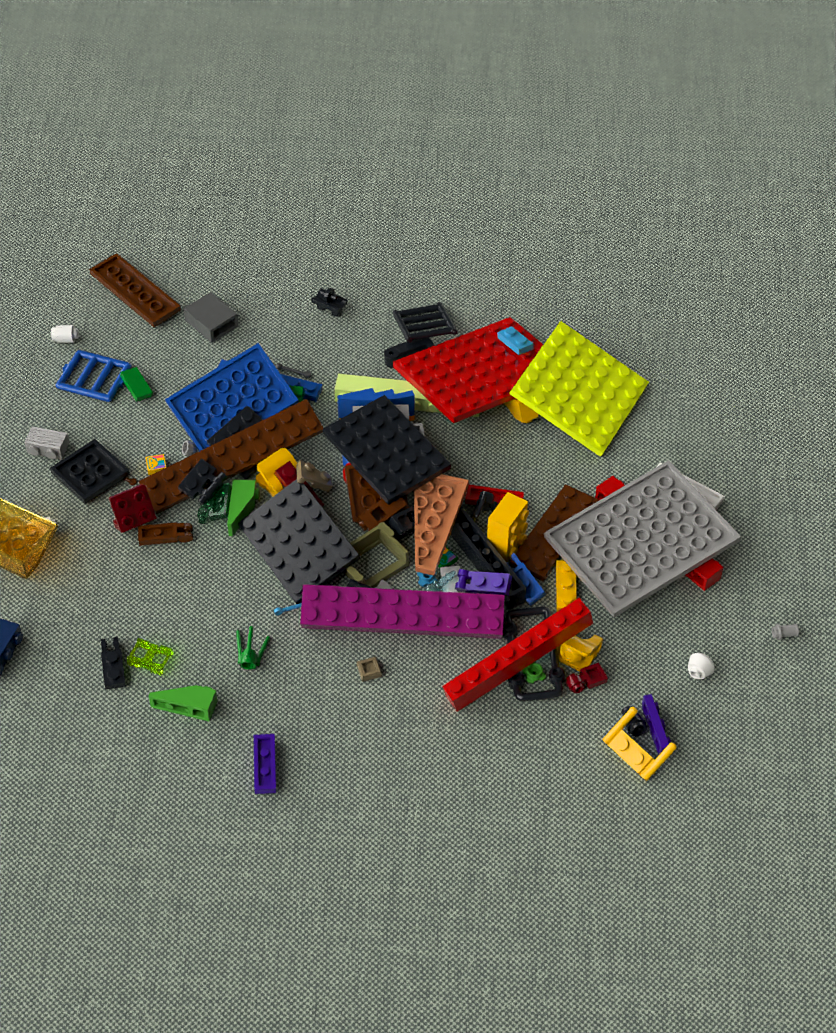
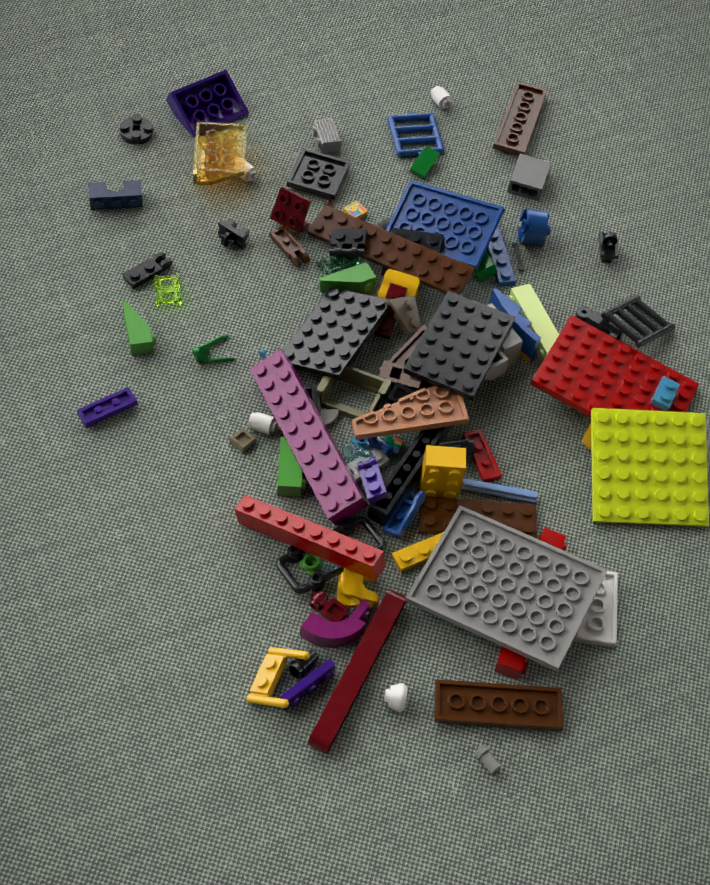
camera: 55 degrees right, 5 degrees up
(118, 574) = (230, 235): none -> black hips
(276, 340) = (534, 227): none -> blue brick
(362, 643) = (262, 423): none -> white brick
(429, 646) = (290, 473): none -> bright green slope
(446, 561) = (381, 444): none -> blue arm
(543, 495) = (500, 490): none -> light blue axle
(609, 693) = (335, 634): none -> magenta arch
(660, 684) = (357, 672): none -> dark red beam
(740, 601) = (498, 705): none -> reddish brown plate

